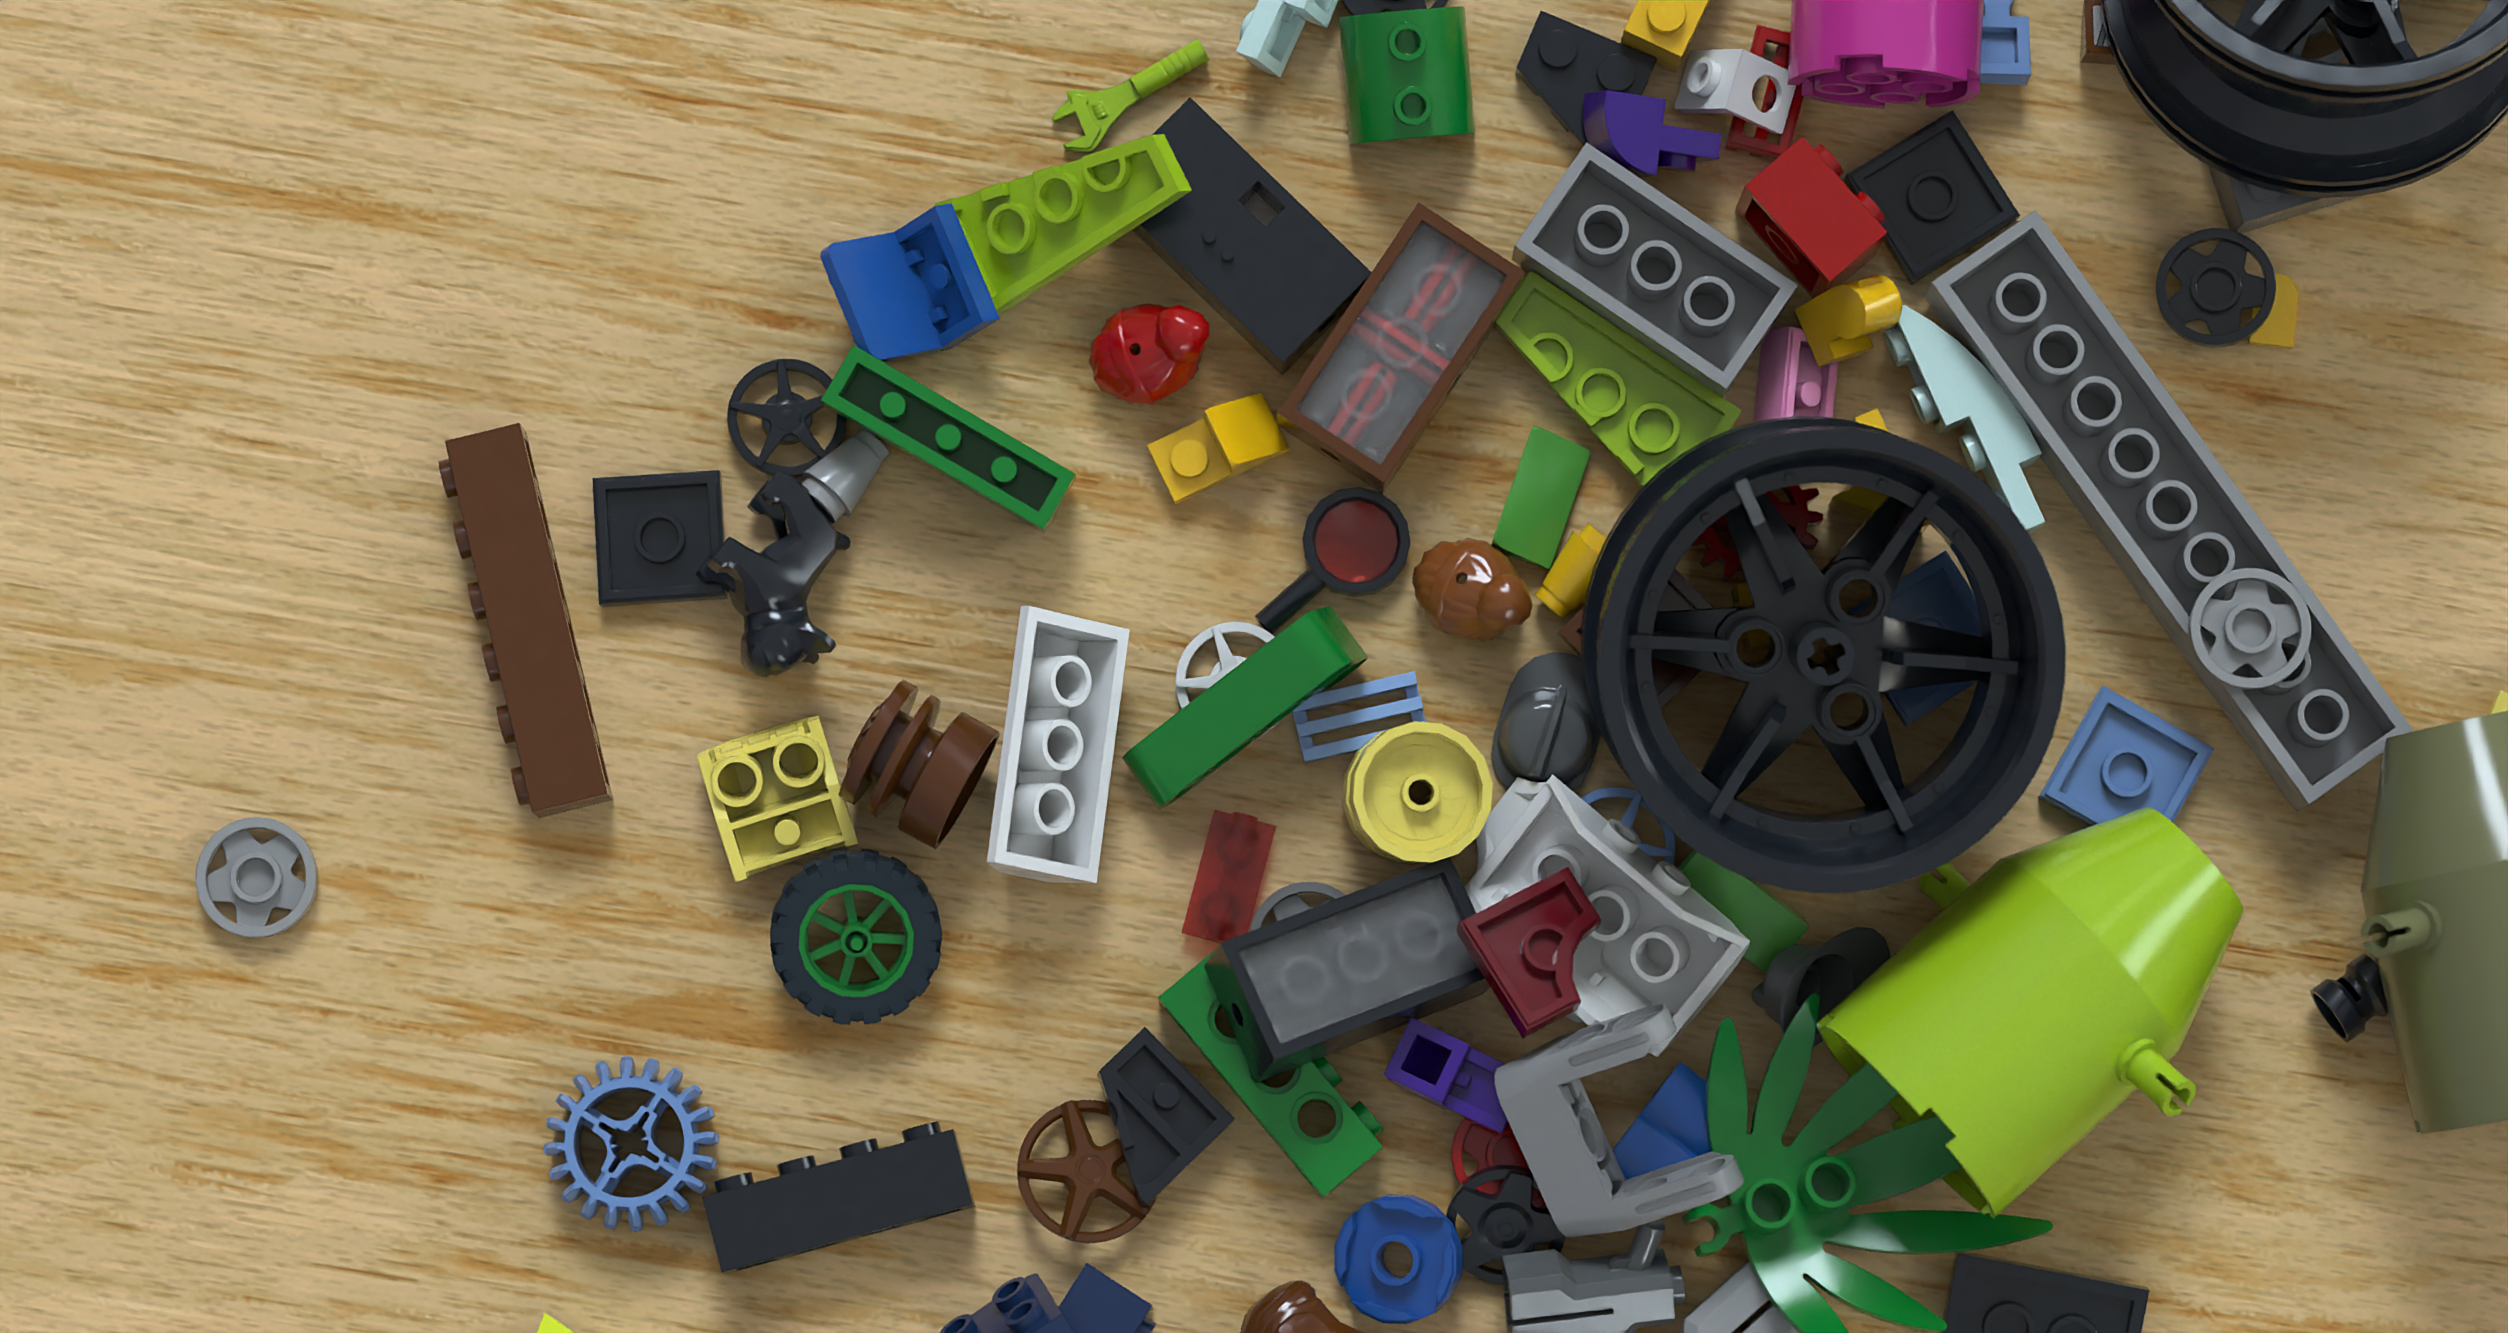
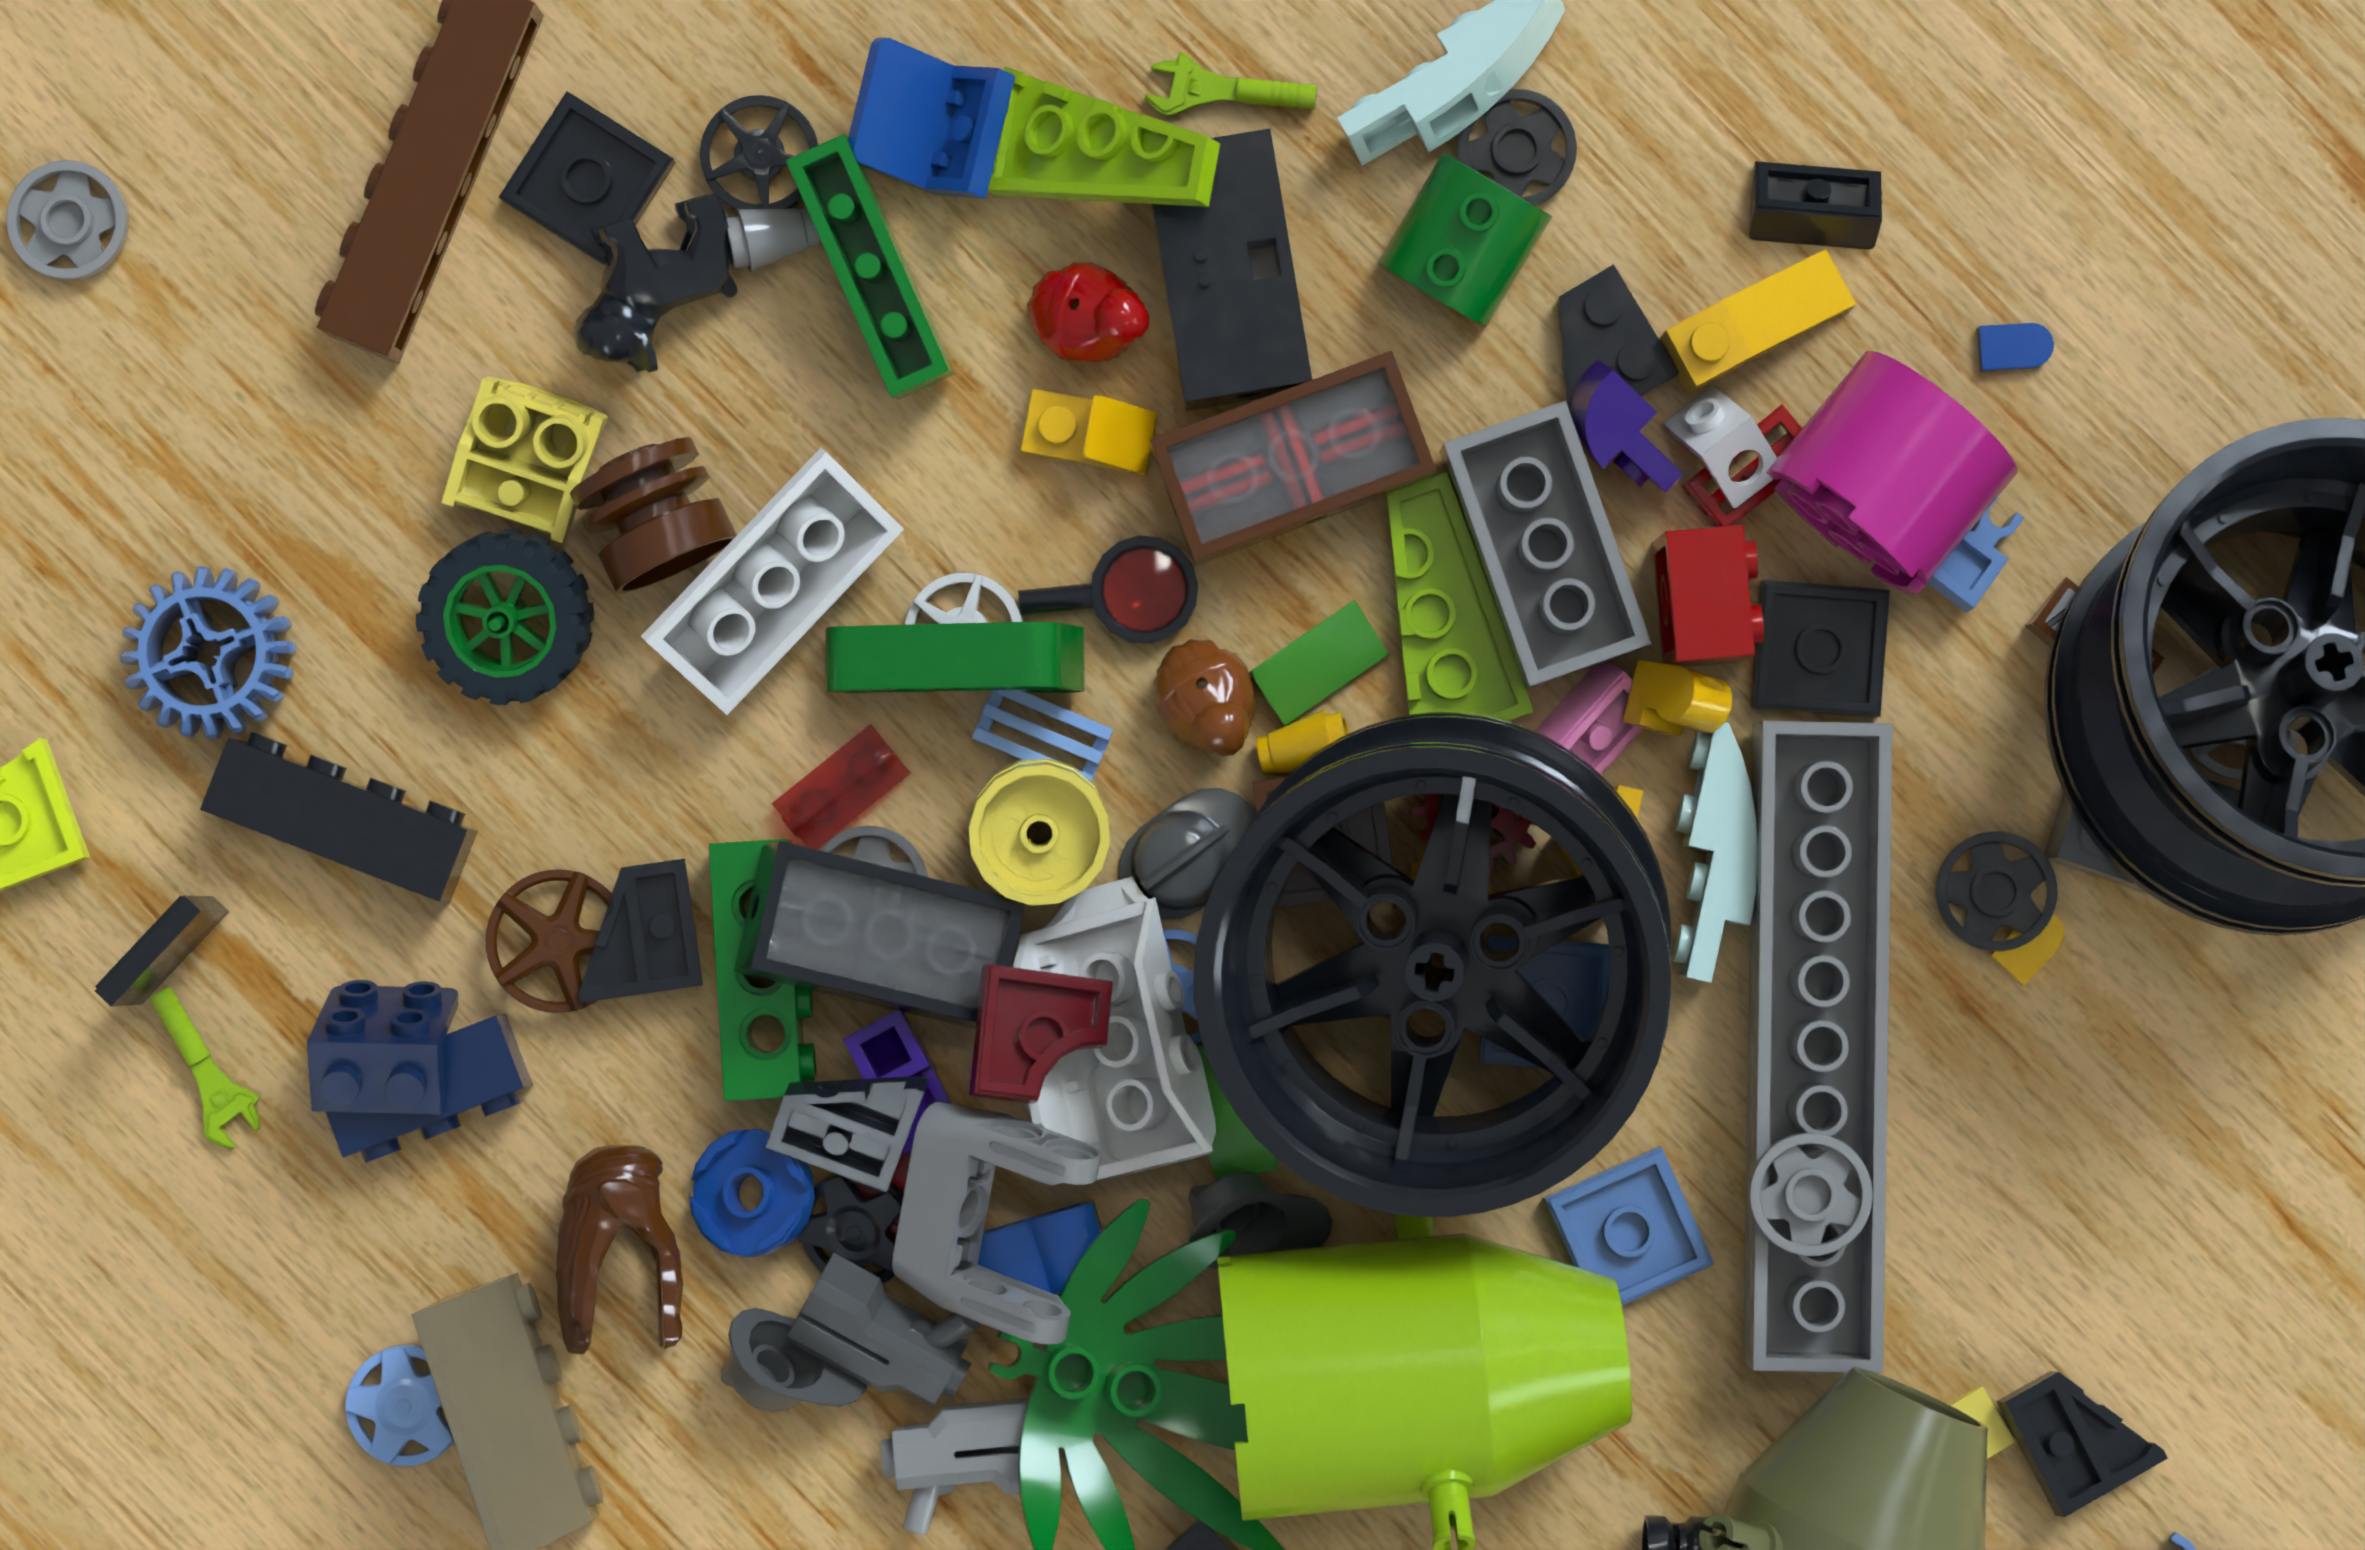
camera: 40 degrees right, 5 degrees up
(1440, 1139) = (849, 1125): none -> wing

